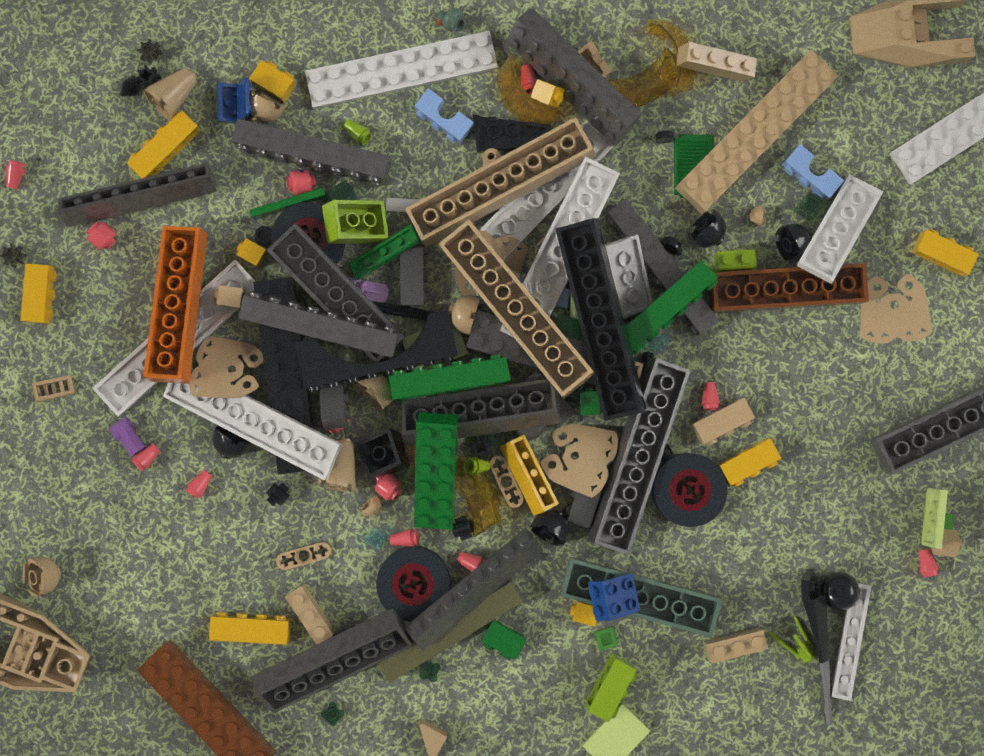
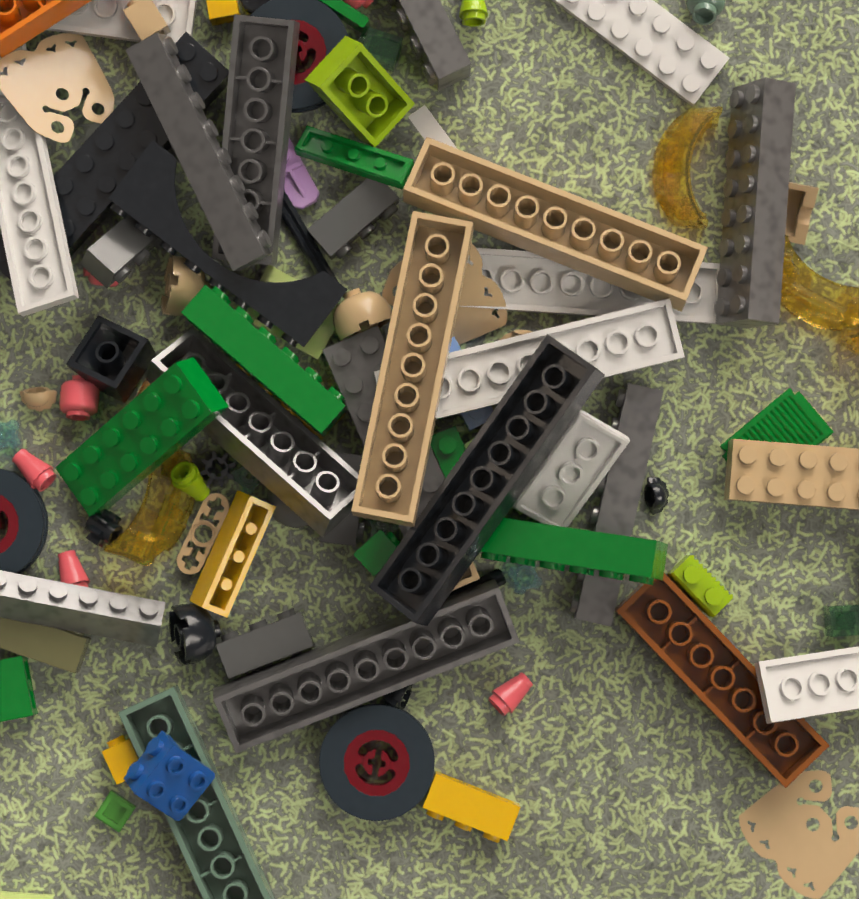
camera: 55 degrees right, 0 degrees up
(343, 471) = (53, 326): tan cone -> none
(455, 128) = (577, 117): light blue arch -> none
(490, 153) = (577, 182): tan brick -> none
(505, 134) = (618, 181): black wing -> none
(528, 78) = (708, 155): coral cone -> none
(547, 93) = (709, 190): yellow brick -> none
(592, 458) = (312, 614): tan piece -> none
(611, 687) = (59, 865): lime brick -> none
(664, 137) = (779, 375): black tile -> none
(709, 230) = (710, 523): black cylinder -> none
(723, 421) = (493, 734): tan brick -> none
(758, 215) = (780, 567): tan piece -> none
(792, 241) = (783, 636): black cylinder -> none

